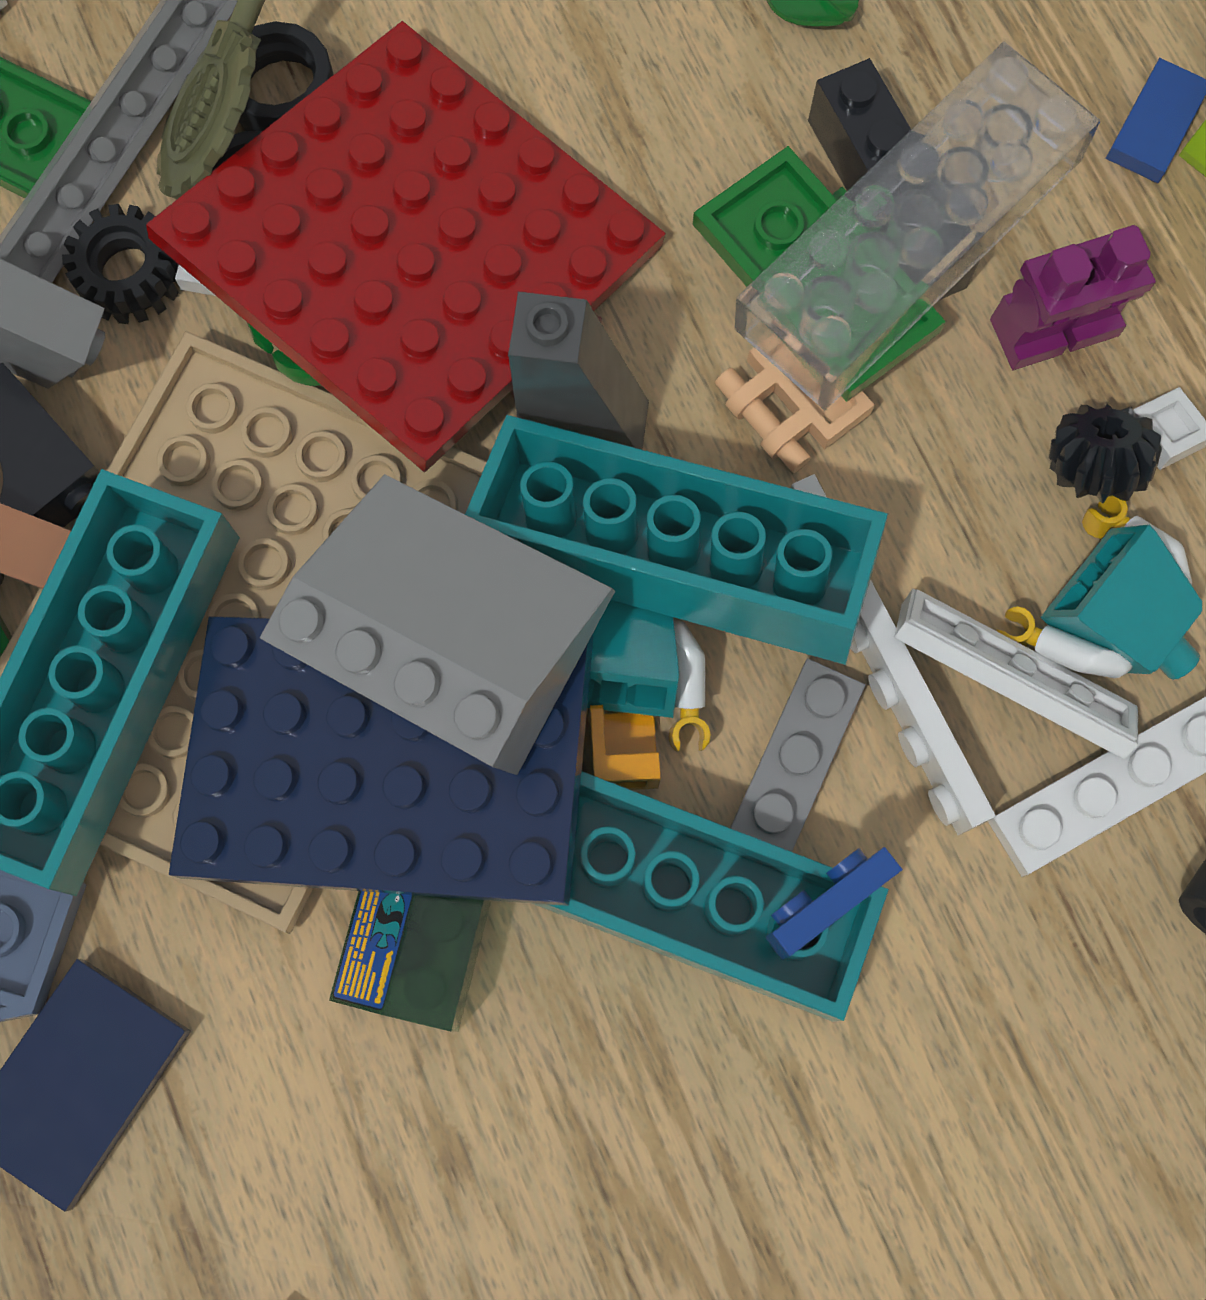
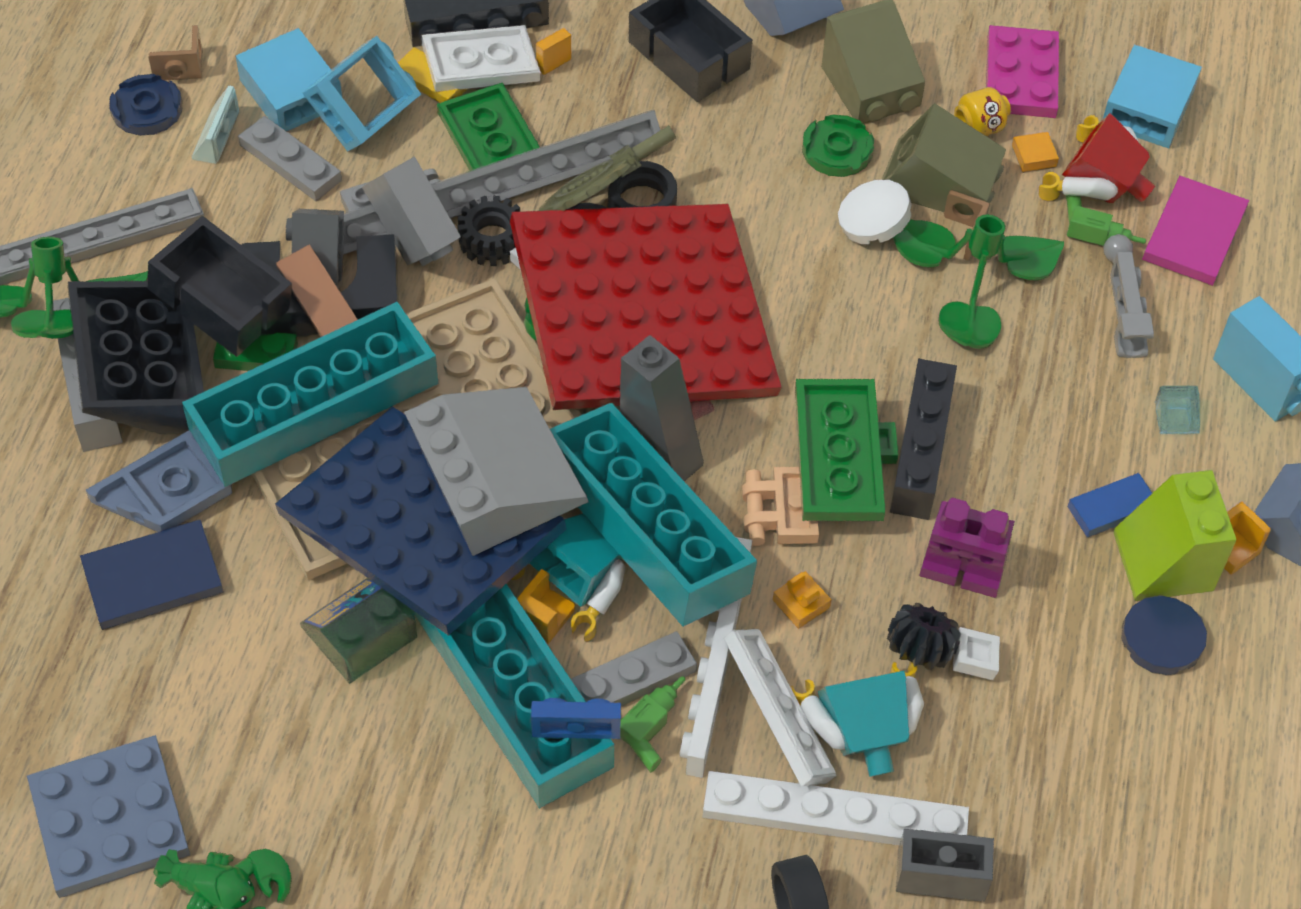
camera: 35 degrees right, 20 degrees down
(865, 804) = (647, 720): none -> bright green piece
(914, 225) = (897, 448): clear brick -> none
(914, 502) = (801, 599): none -> light orange tile

